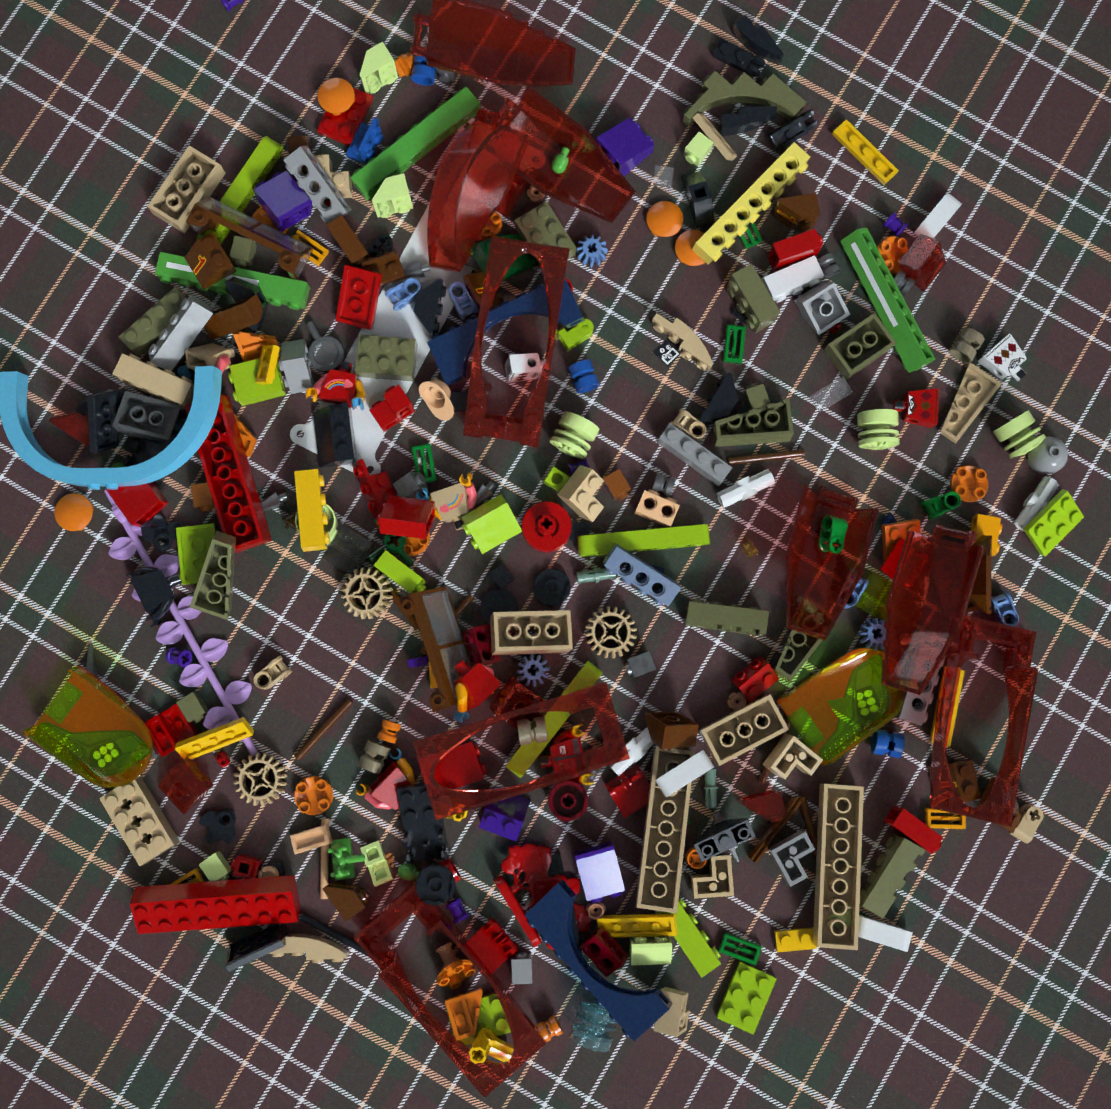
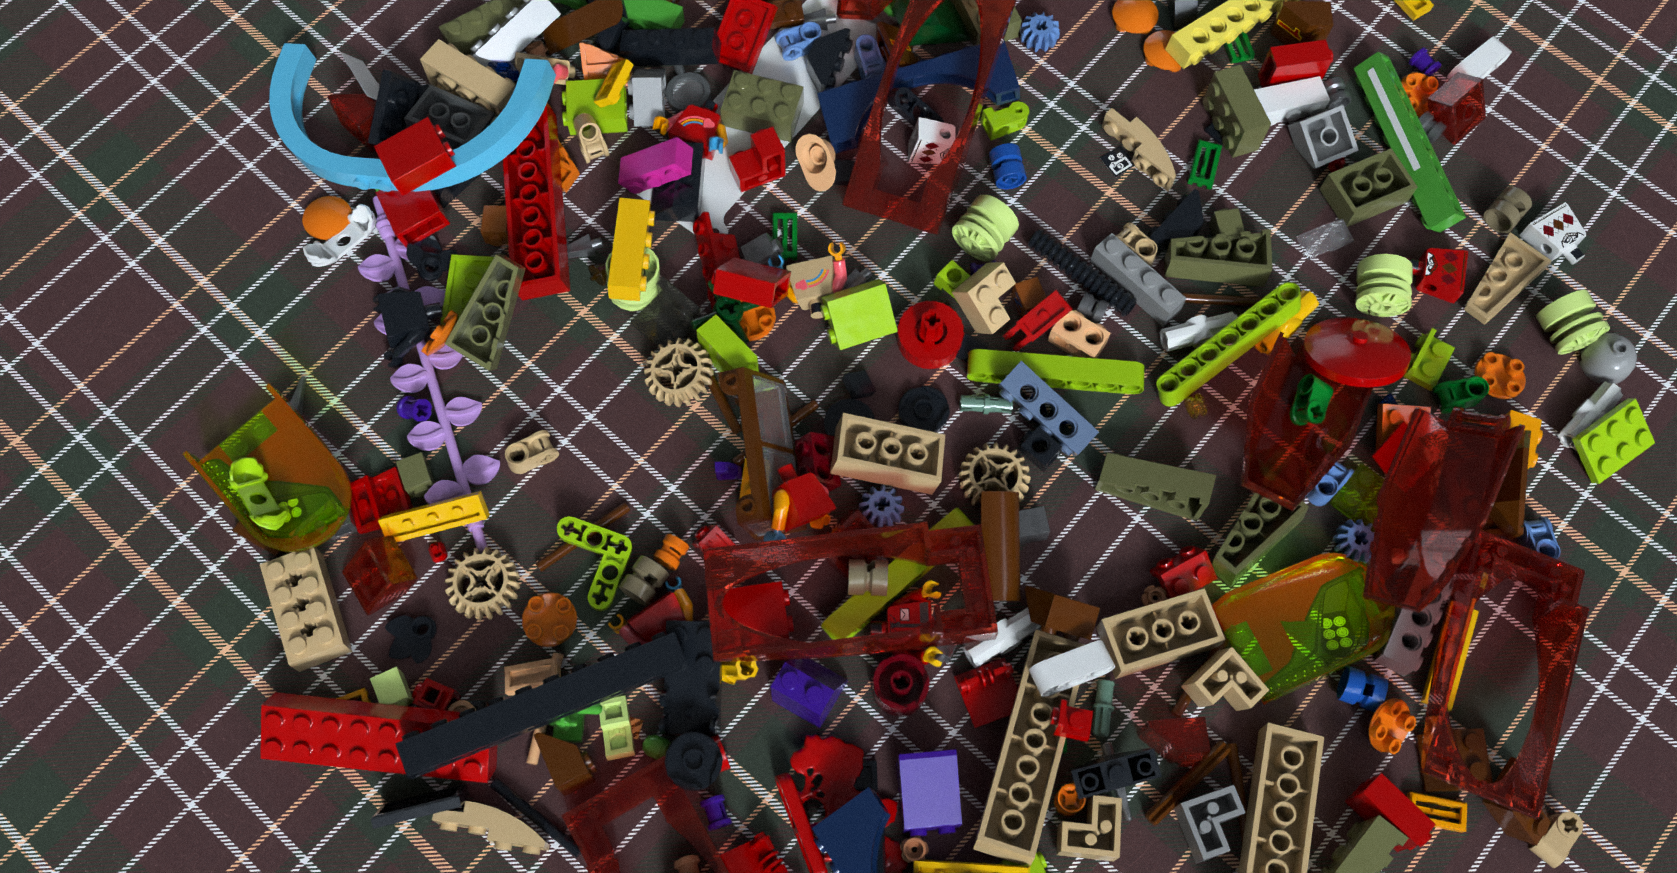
camera: 10 degrees right, 15 degrees down
(70, 390) = (362, 75): none -> white sticker
(73, 737) = (248, 480): none -> lime piece
(82, 542) = (360, 227): none -> white piece
(131, 466) = (416, 155): none -> red brick
(179, 366) = (505, 69): none -> clear blue tile
(185, 598) = (441, 334): none -> orange dish
(201, 339) = (536, 48): none -> nougat plate
(258, 410) = (590, 141): none -> tan piece
(304, 320) = (671, 46): none -> black brick
(315, 430) = (655, 165): none -> dark pink brick
(324, 870) = (540, 706): none -> black brick
(346, 744) = (609, 557): none -> lime beam
(418, 719) = (711, 537): none -> red bracket
(499, 347) = (906, 110): none -> black beam
(622, 686) = (1002, 542): none -> reddish brown brick
(625, 504) = (1039, 319): none -> red hinge
(644, 612) = (1043, 459): none -> black brick
(652, 455) = (1082, 272): none -> black piece
(689, 812) = (1071, 721): none -> red bracket
(766, 508) = (1279, 304): none -> lime beam
(808, 468) = (1308, 305): none -> yellow piece
(862, 488) = (1356, 352): none -> red dish
(909, 766) = (1390, 725): none -> orange dish
(916, 480) = (1429, 360): none -> lime bracket

